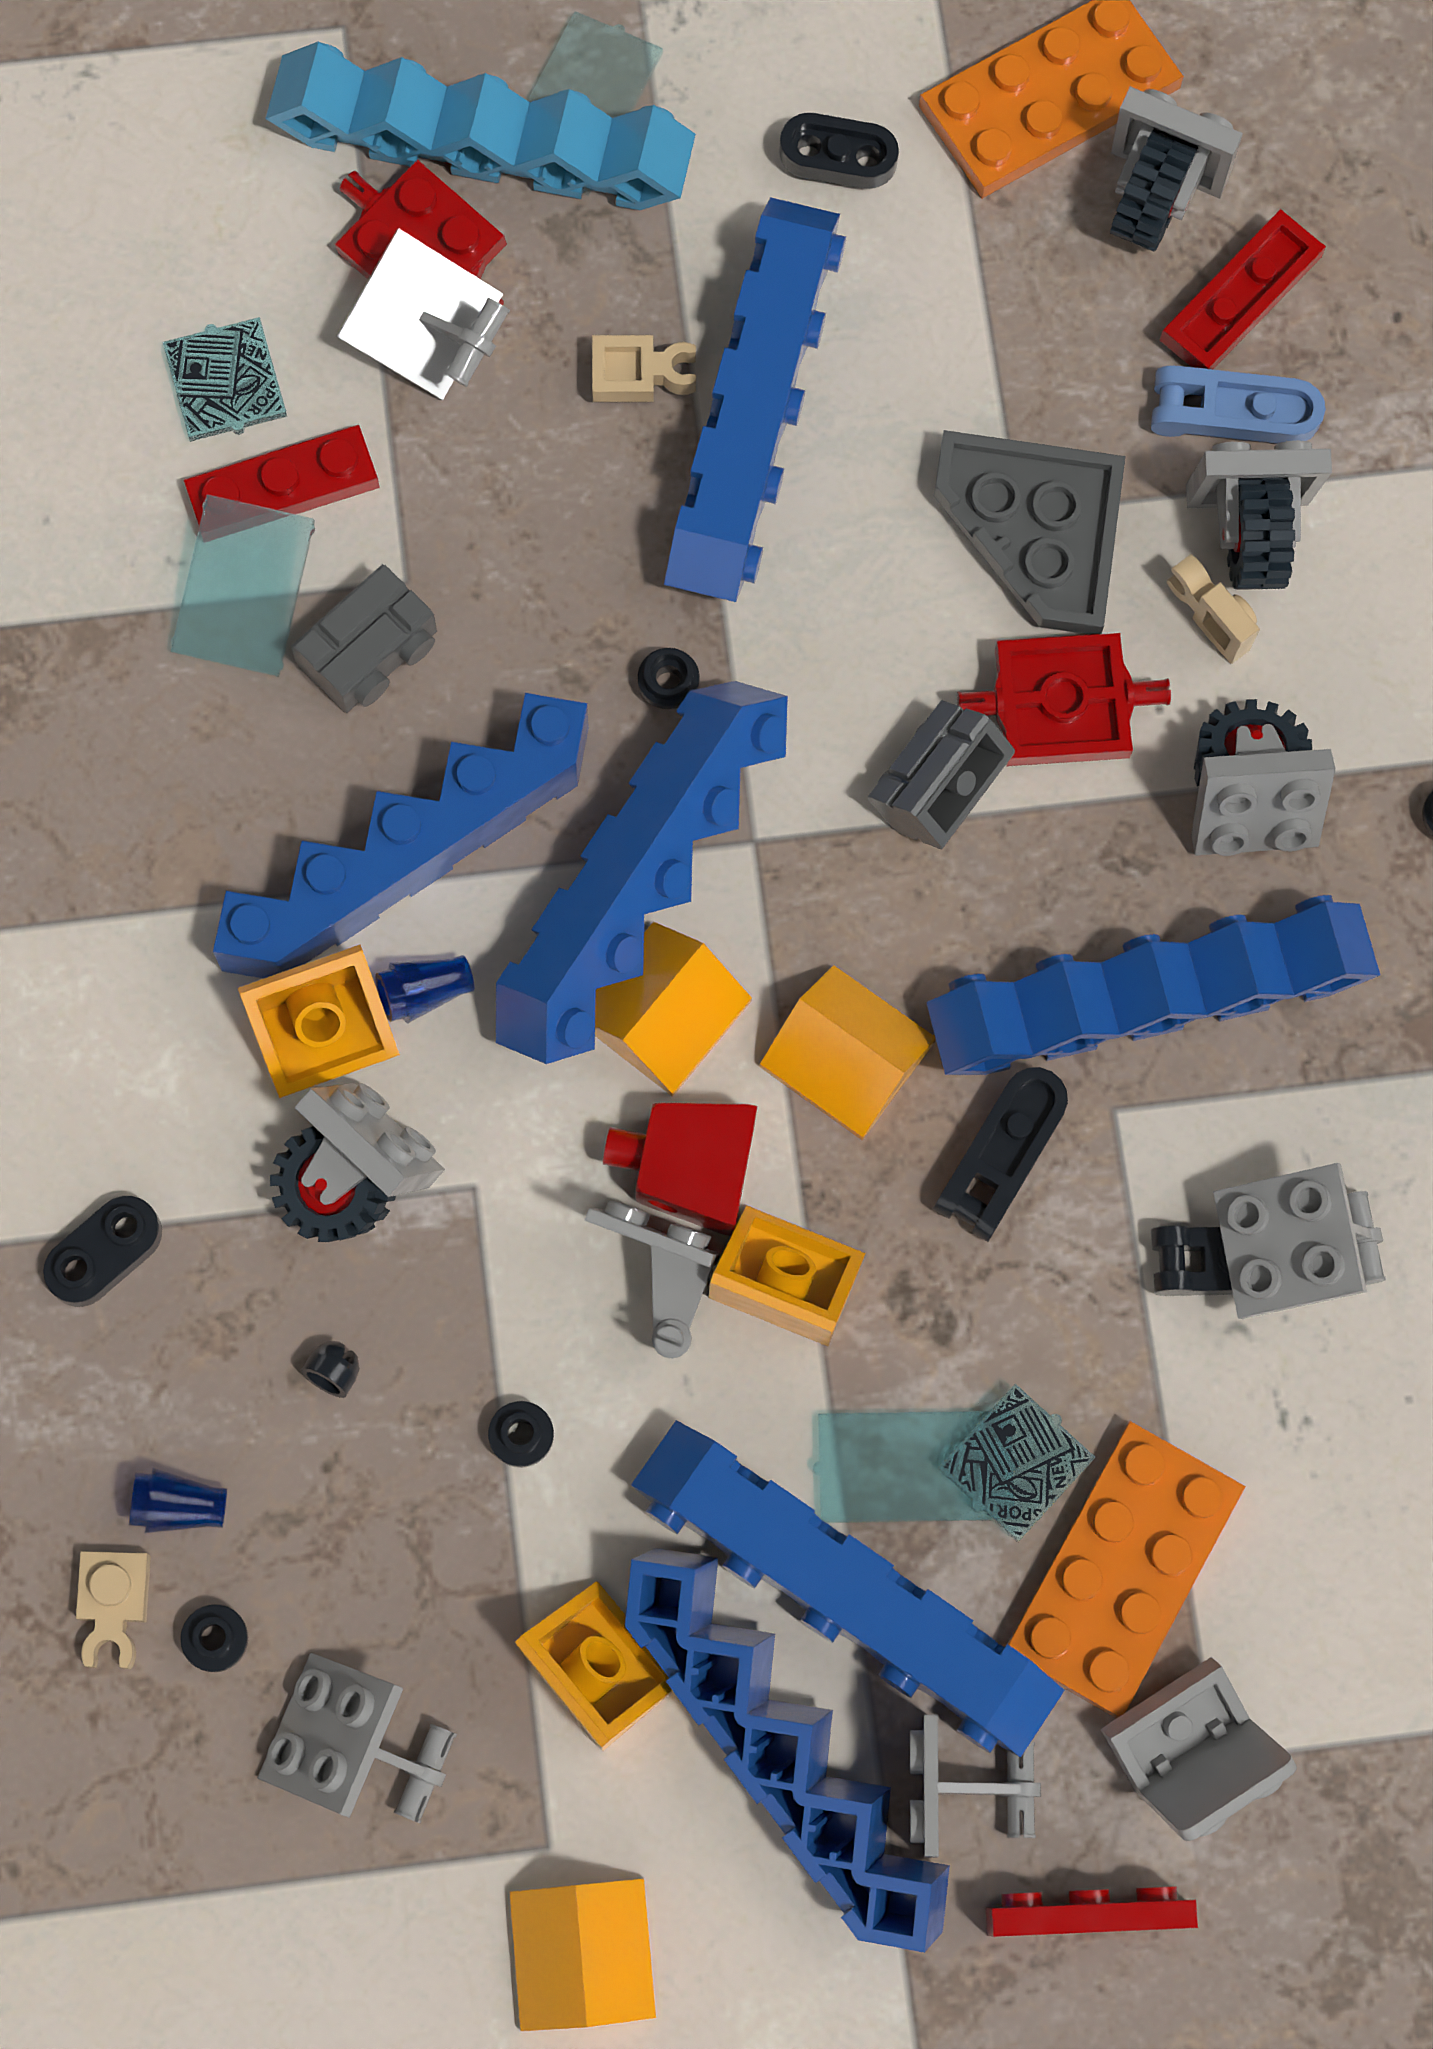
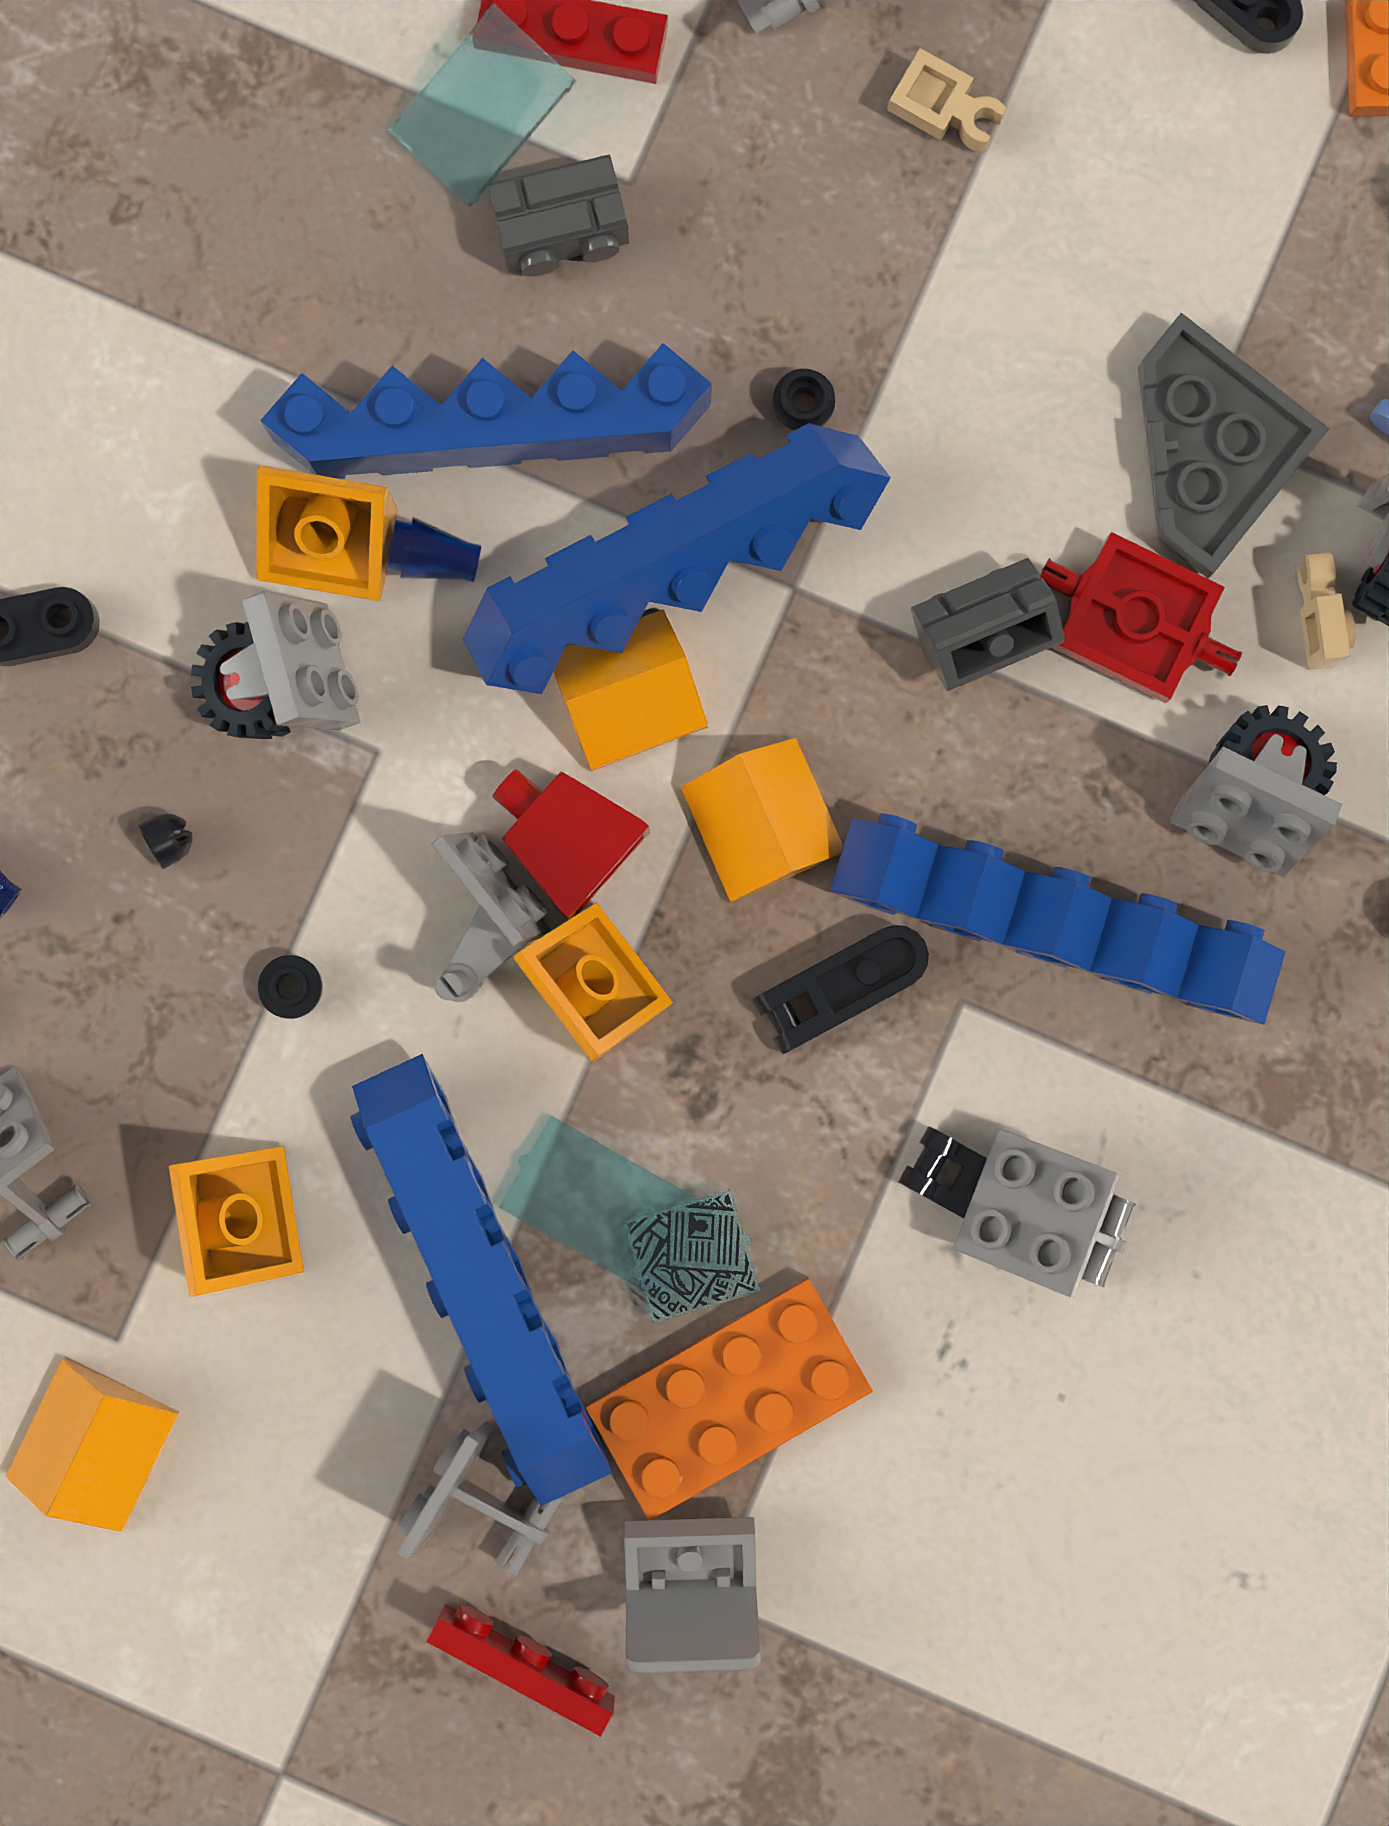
camera: 30 degrees right, 10 degrees up
(754, 400) = (1029, 186): blue brick -> none
(782, 1753) = (344, 1383): blue brick -> none

